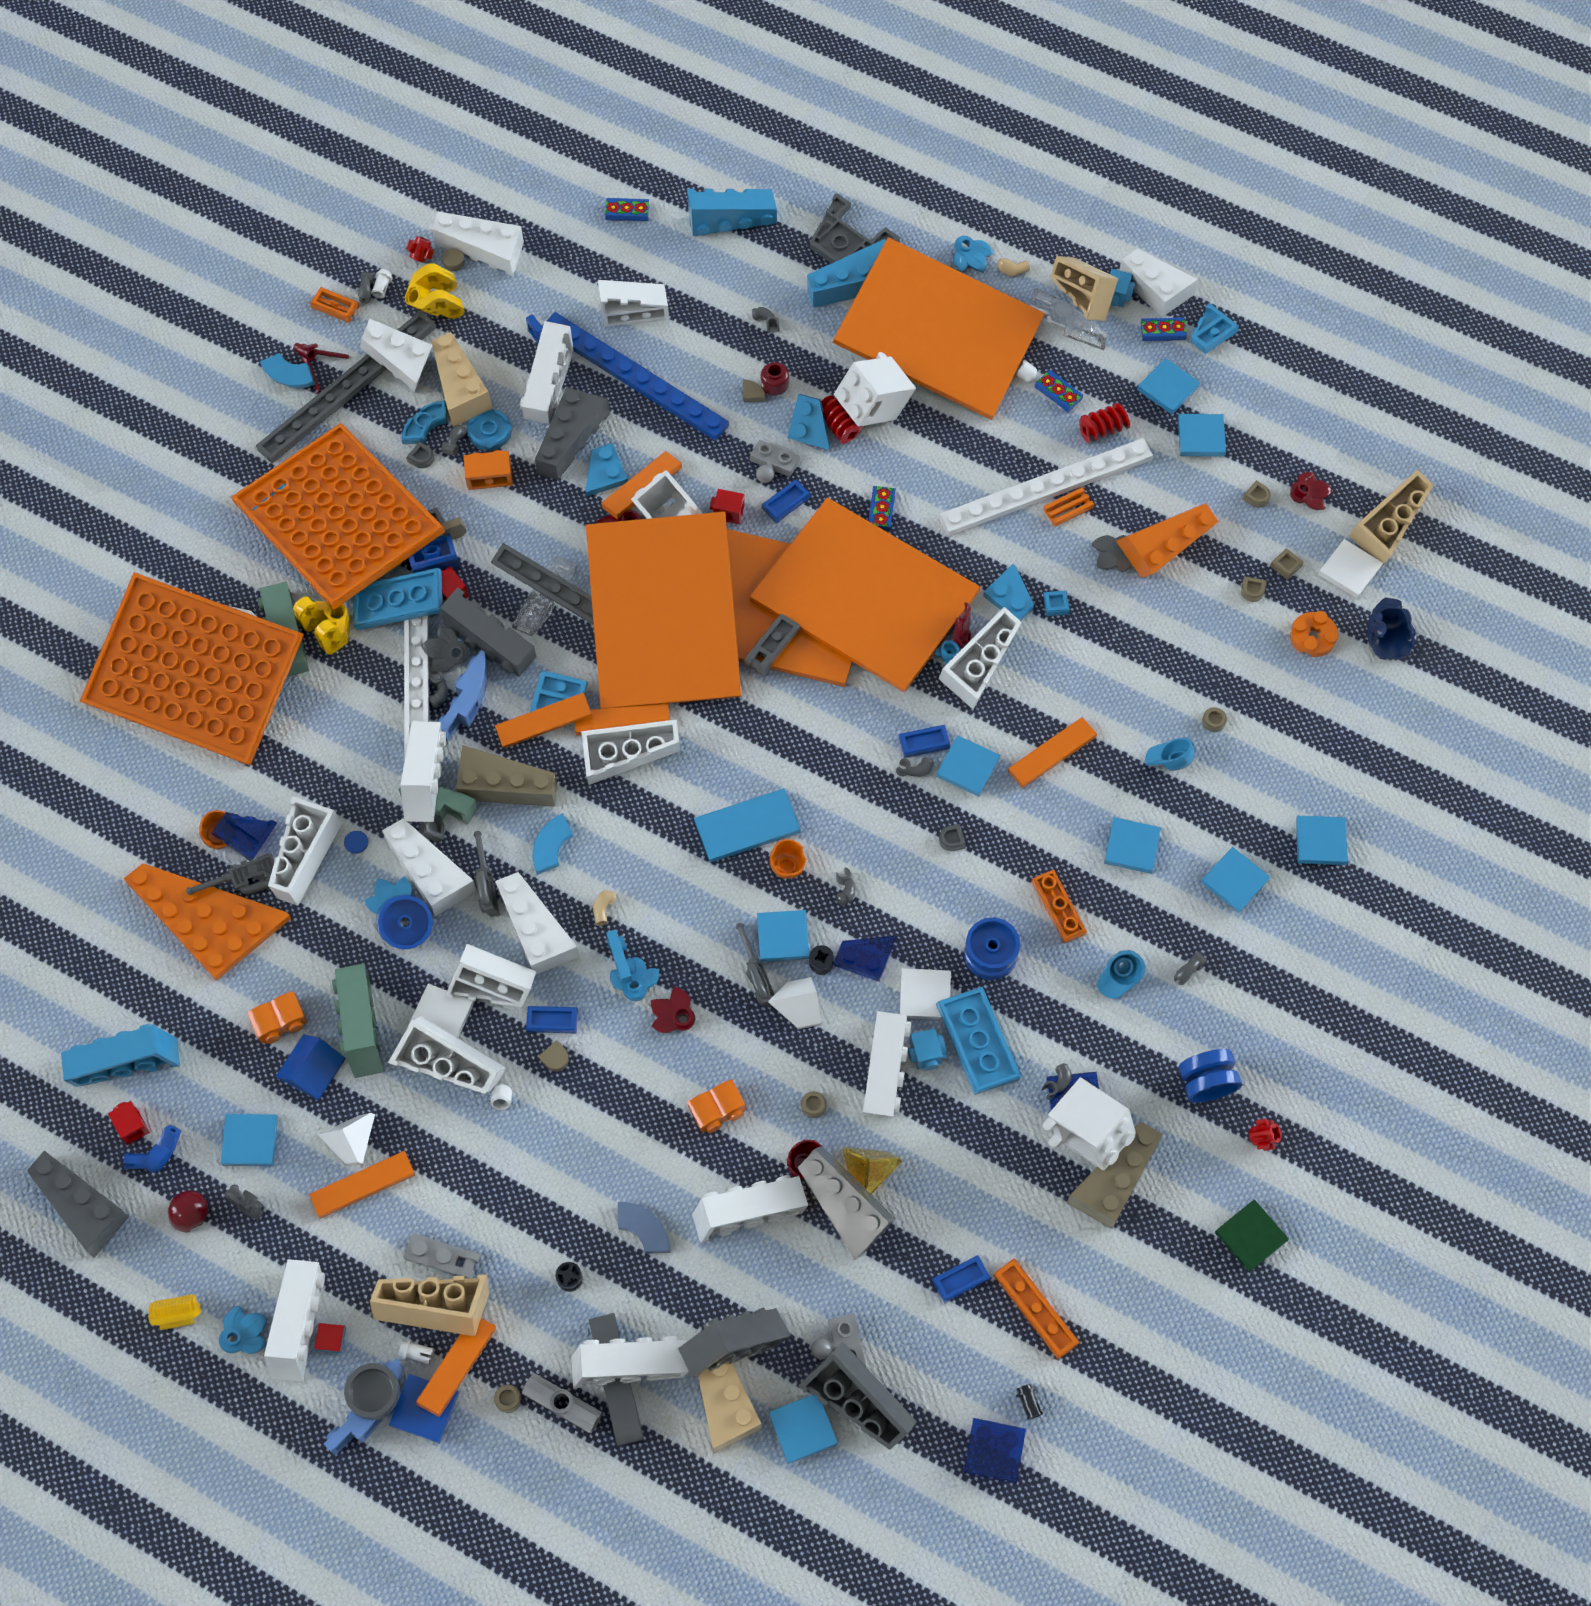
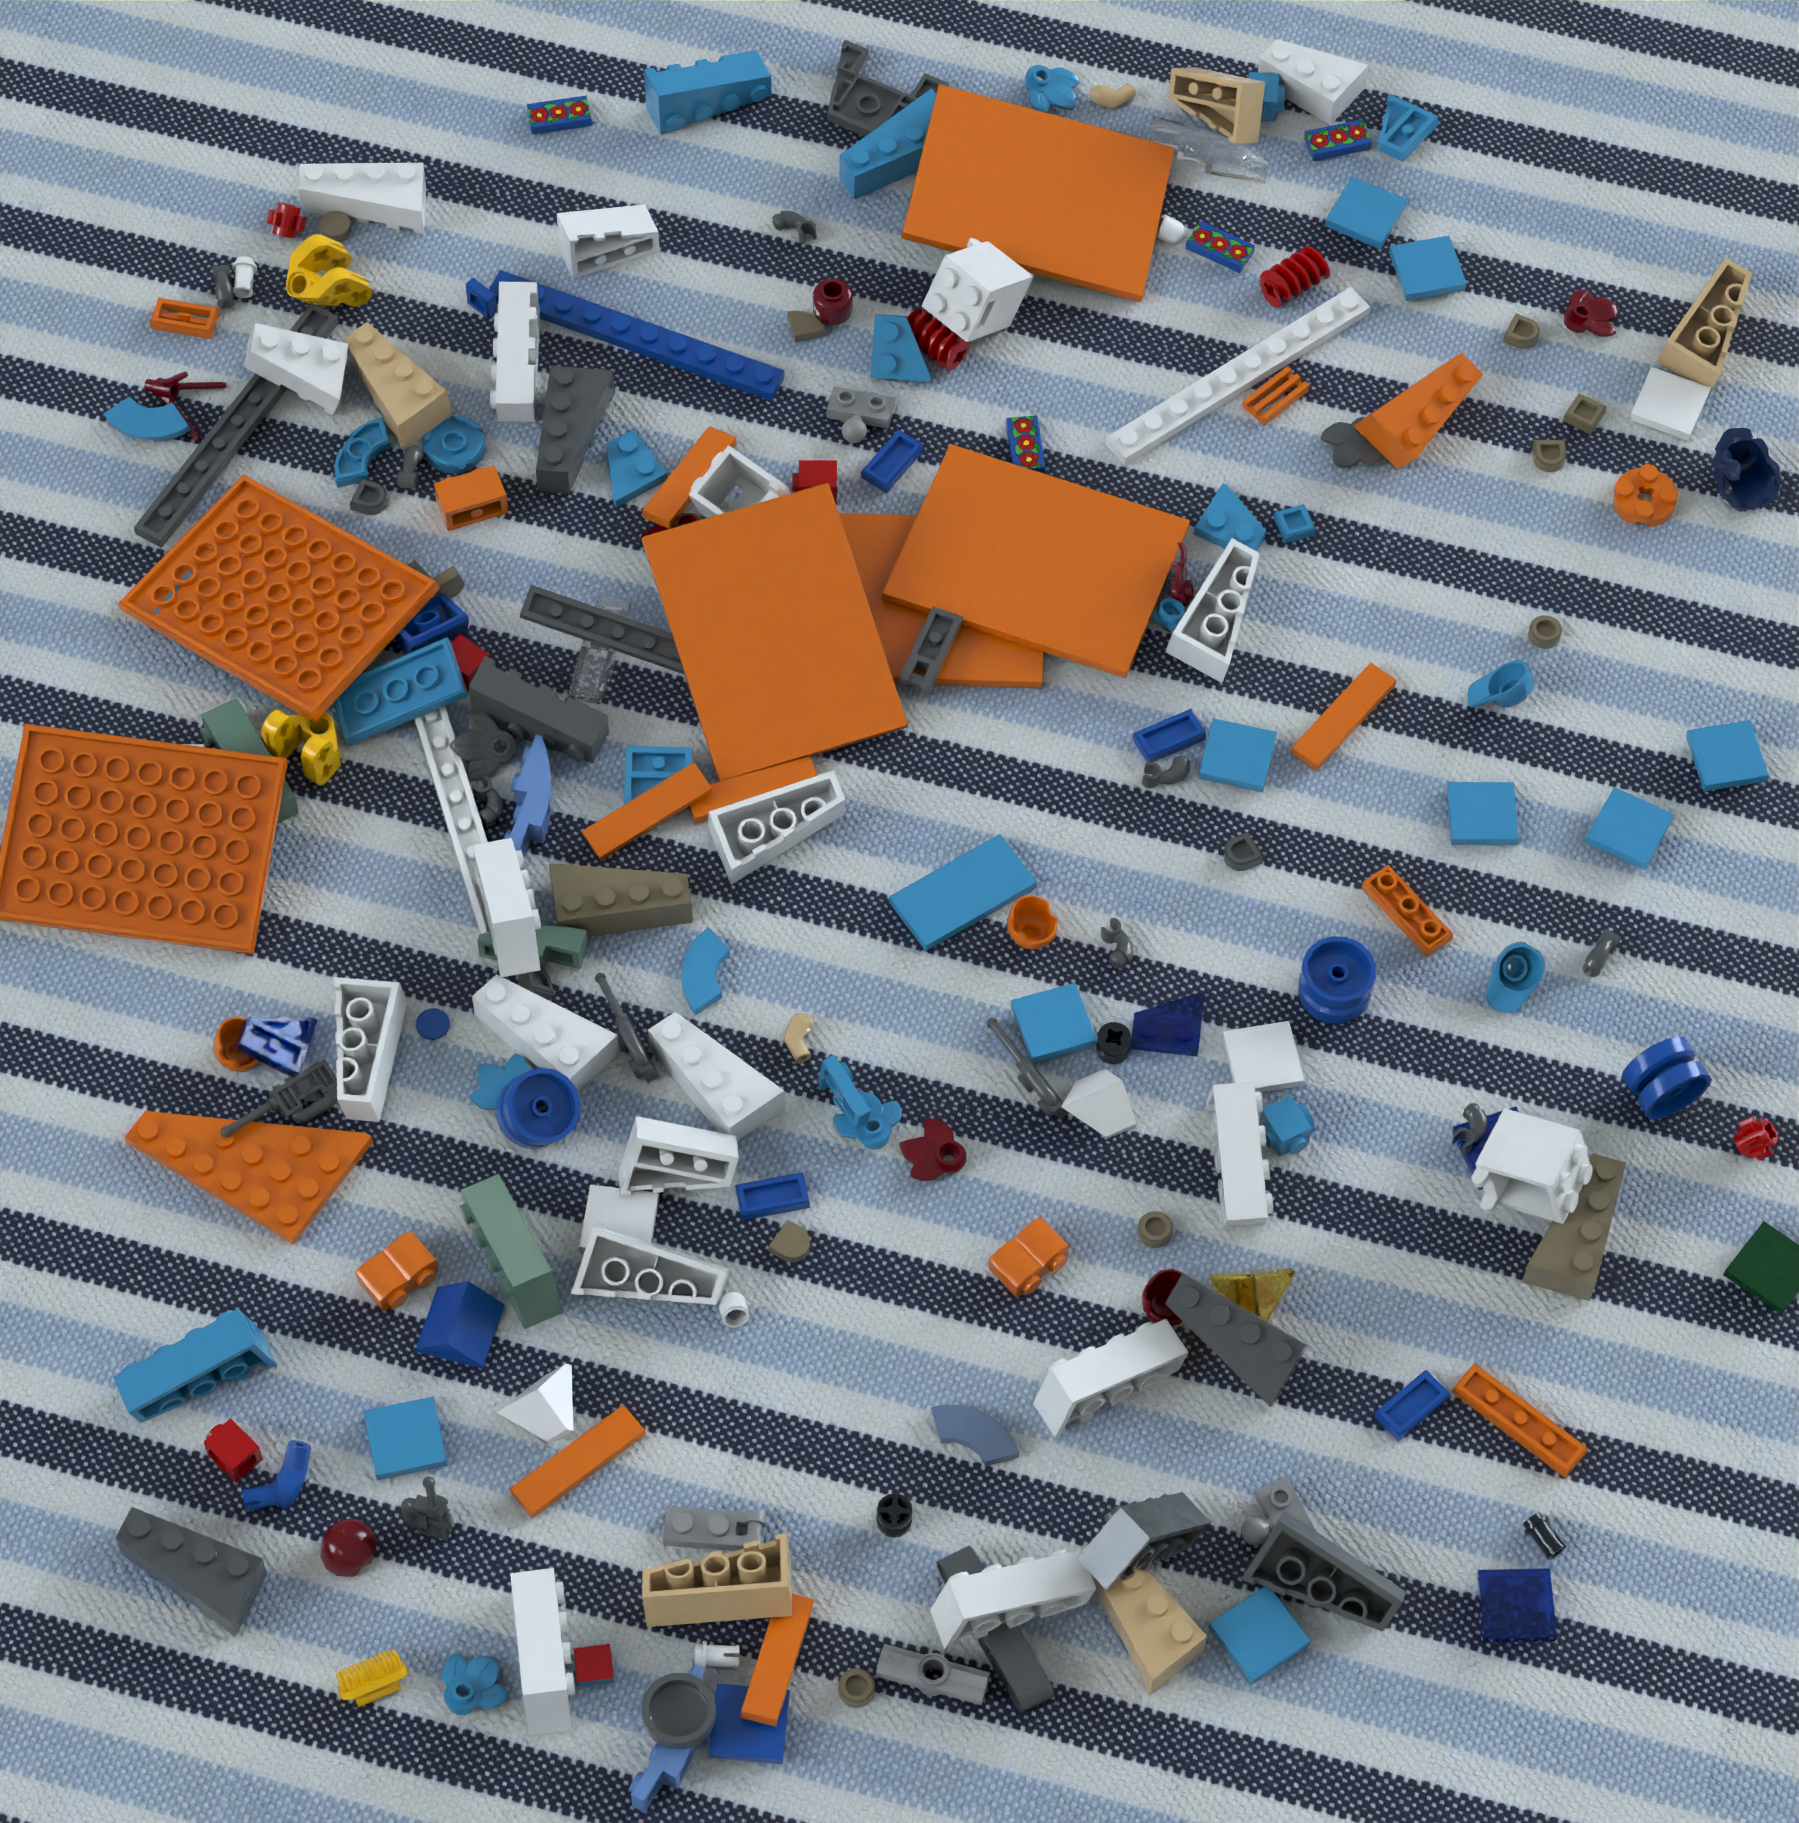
camera: 15 degrees left, 5 degrees down
(978, 1040) = (1350, 1101): dark azure tile -> none

